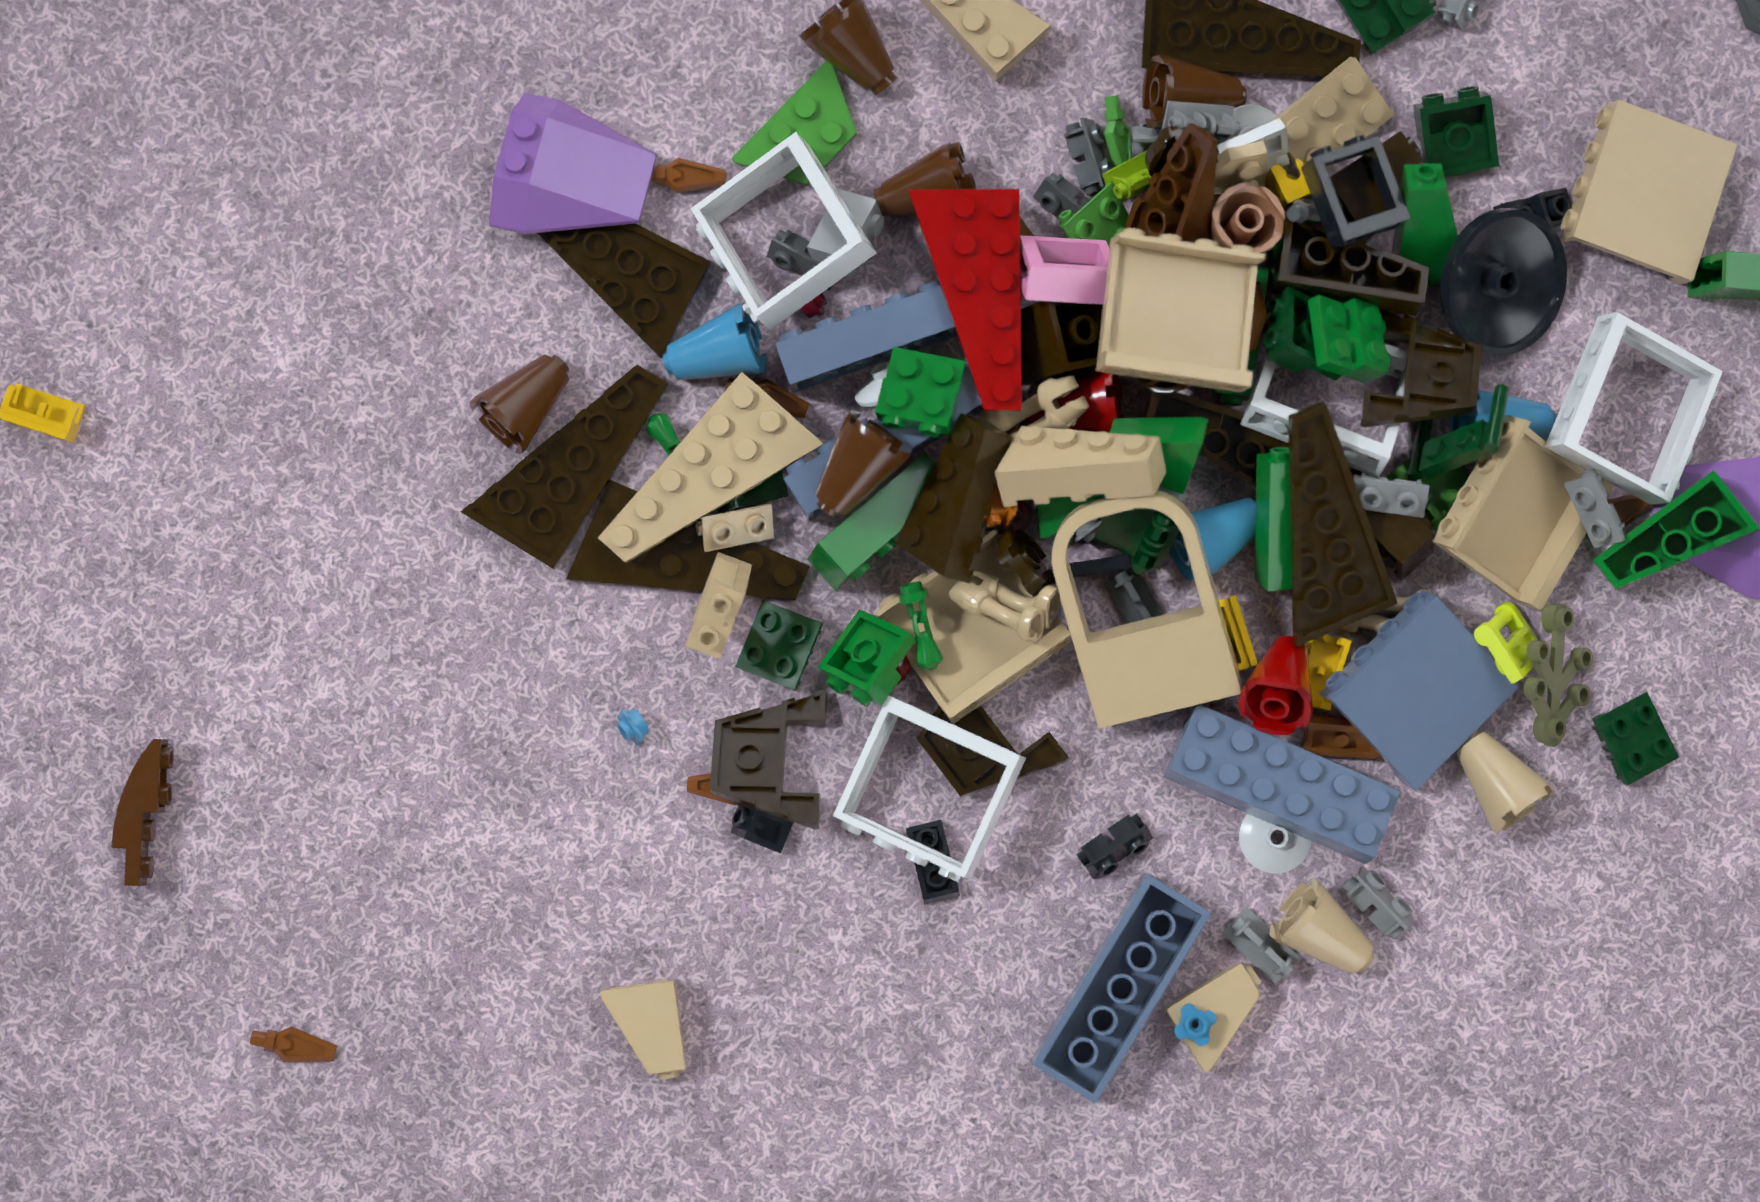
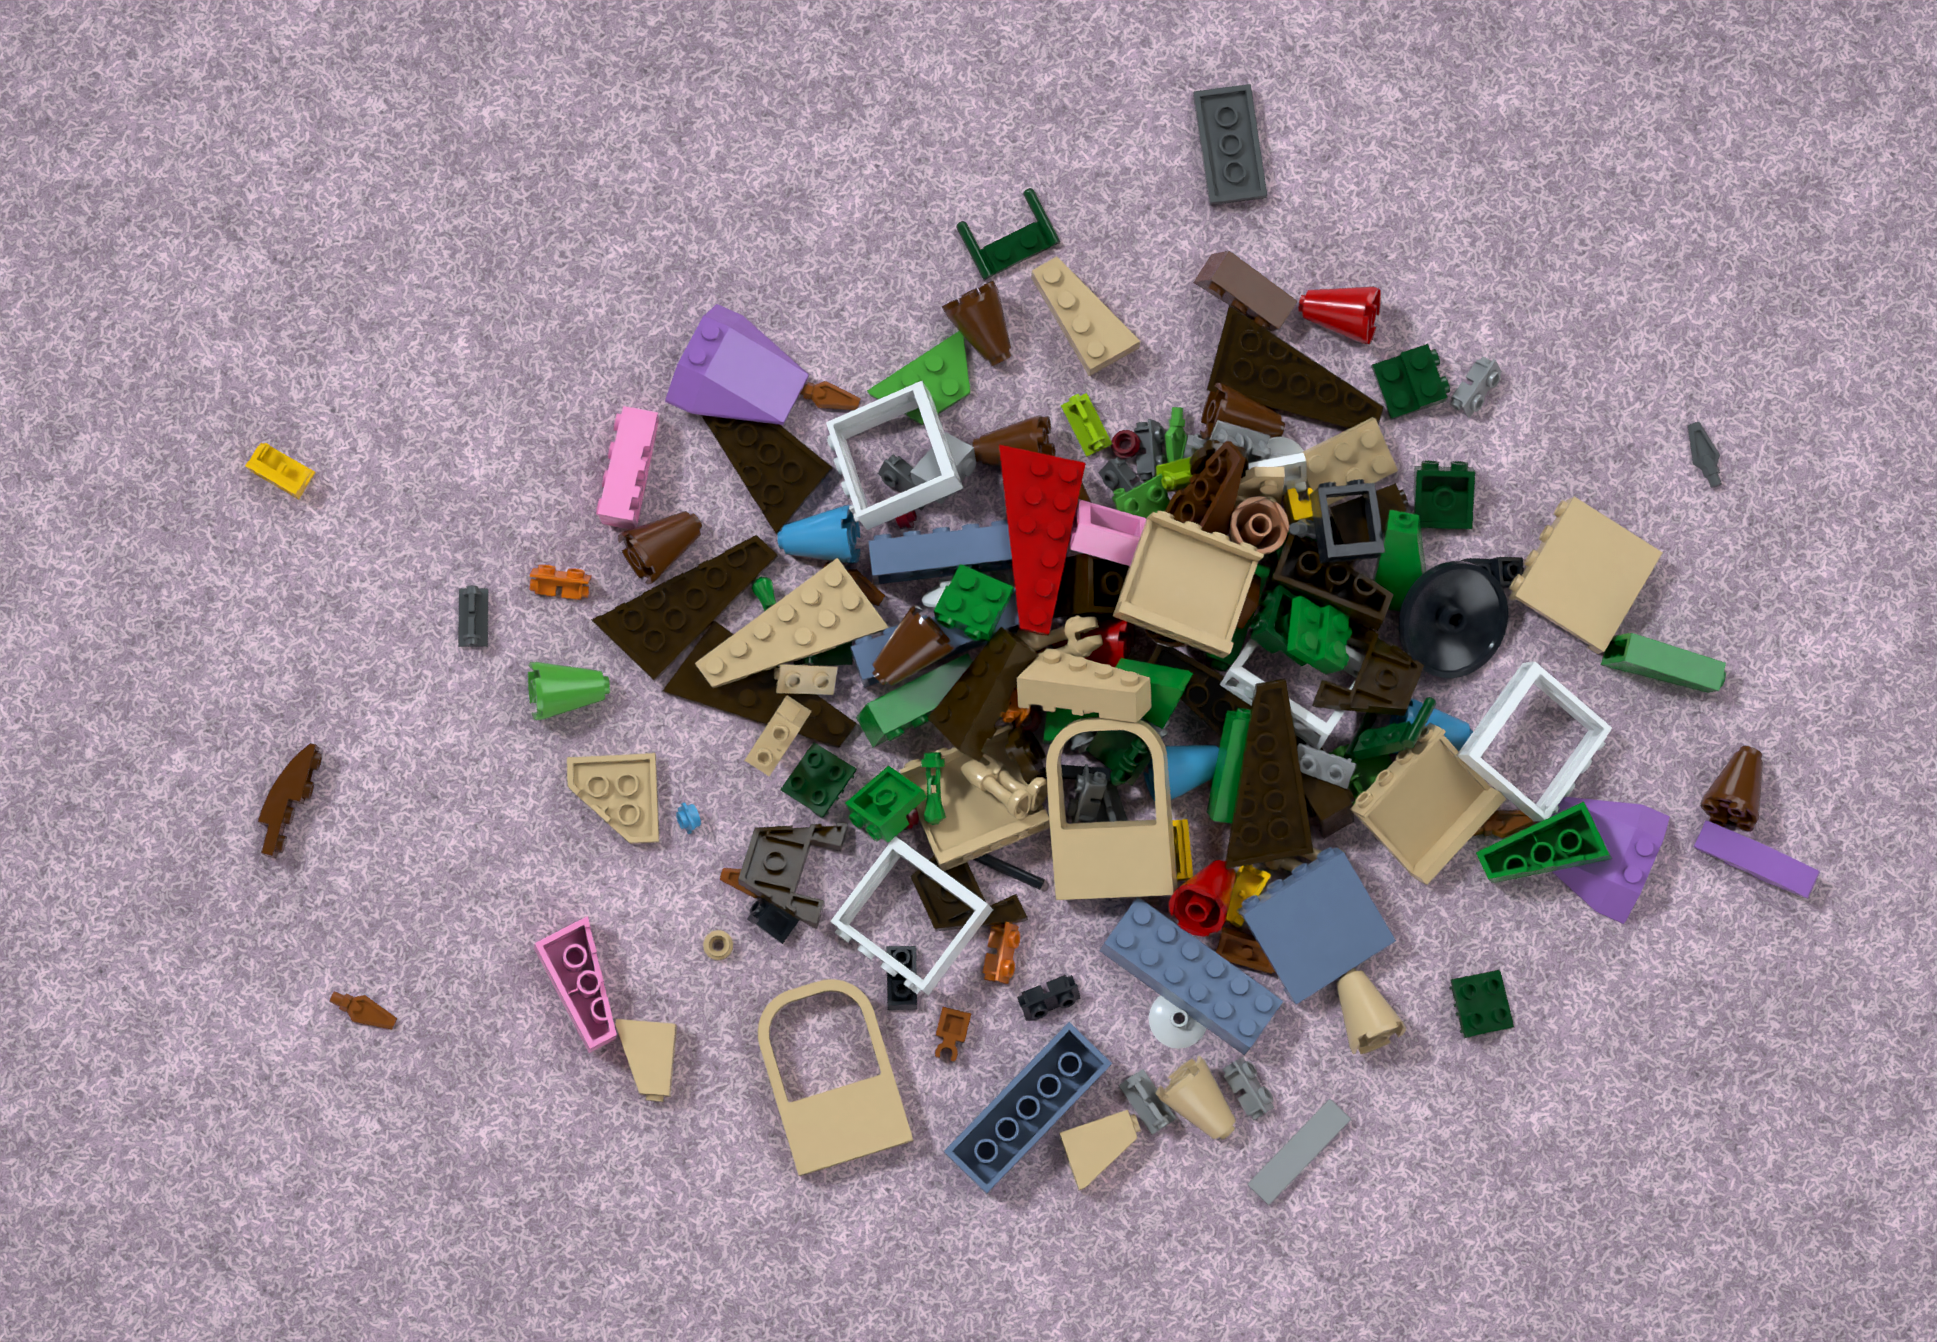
camera: 10 degrees right, 5 degrees down
(317, 539) = (473, 617): none -> dark grey hinge
(398, 473) = (571, 582): none -> orange hinge
(446, 603) = (564, 688): none -> bright green cone
(463, 317) = (628, 467): none -> bright pink wedge
(542, 712) = (620, 792): none -> tan plate
(545, 955) = (577, 978): none -> bright pink wedge
(694, 863) = (708, 945): none -> tan plate
(901, 1051) = (844, 1120): none -> tan window
(1005, 141) = (1086, 424): none -> lime hinge
(1007, 908) = (952, 1027): none -> dark orange plate
(1036, 703) = (1011, 870): none -> black bar
(1047, 822) = (1001, 965): none -> orange hinge
(1054, 145) = (1119, 438): none -> dark red plate
(1105, 583) = (1087, 786): none -> dark grey hinge
(1199, 1034) = (1071, 1149): dark azure plate -> none
(1455, 965) = (1299, 1151): none -> light grey tile
(1511, 652) = (1402, 912): neon yellow plate -> none
(1550, 723) = (1415, 973): olive plant -> none
(1594, 511) = (1488, 823): light grey hinge -> none

